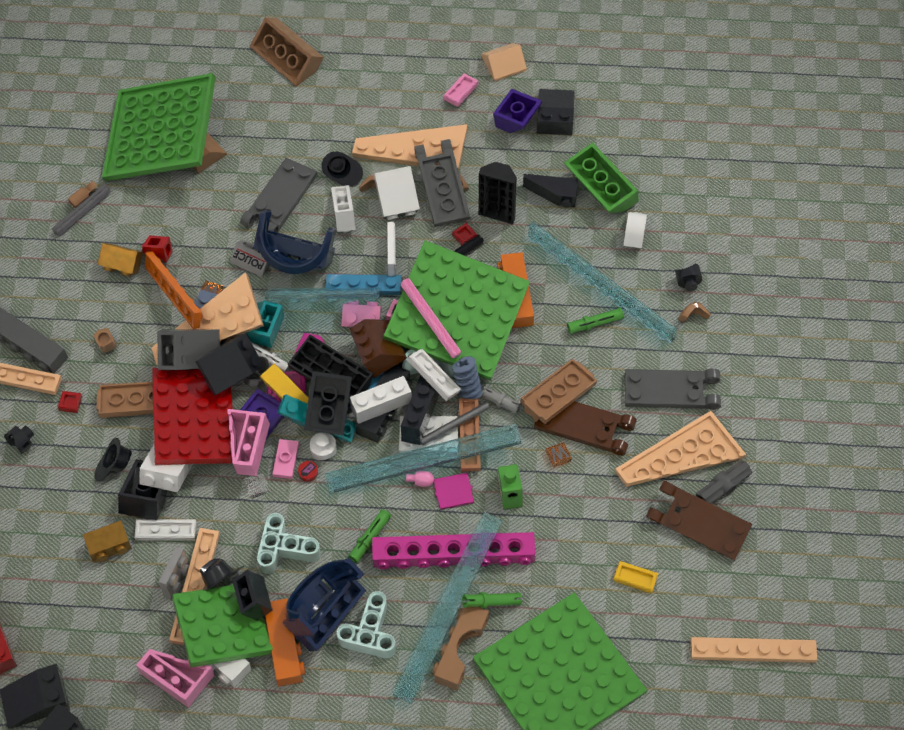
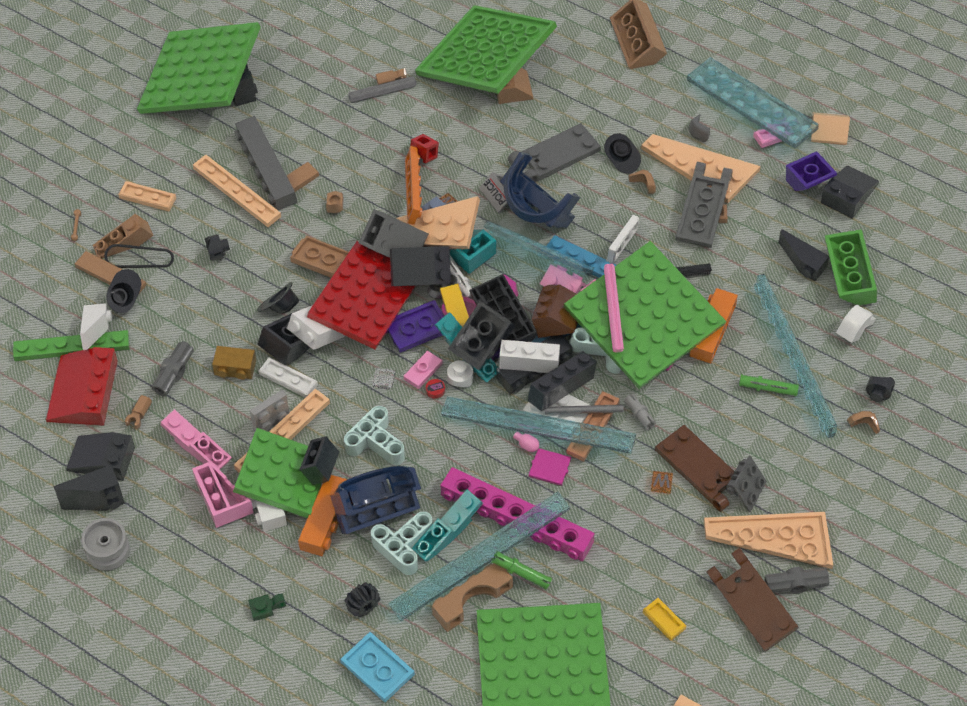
camera: 30 degrees right, 5 degrees down
(44, 635) = (138, 411): none -> medium nougat bar
(51, 577) = (172, 368): none -> dark grey piece
(58, 328) = (302, 176): none -> medium nougat tile
(70, 402) = (275, 238): red tile -> none
(117, 637) = (193, 441): none -> bright pink slope
(120, 258) = (387, 141): pearl gold brick -> none
(215, 571) = (304, 428): black piece -> none
(248, 439) = (396, 336): bright pink wedge -> none
(343, 208) = (603, 187): white slope -> none
(364, 542) = (459, 463): bright green pin -> none
(368, 703) = (362, 599): none -> black gear
(394, 116) = (699, 130): none -> dark grey hair
(396, 192) = (656, 193): white brick -> none
(401, 594) = (447, 528): none -> teal slope
(426, 68) = (753, 102): none -> clear light blue plate
(434, 374) = (589, 358): white tile -> none
(463, 234) = (697, 257): red tile -> none
(467, 378) = (617, 376): sand blue piece -> none
(497, 192) = (742, 231): black piece -> none
(510, 482) = (600, 479): bright green torso -> none
(558, 391) = (694, 427): medium nougat brick -> none
(632, 418) = (747, 482): none -> dark grey hinge
(670, 388) = (802, 476): dark grey hinge -> none

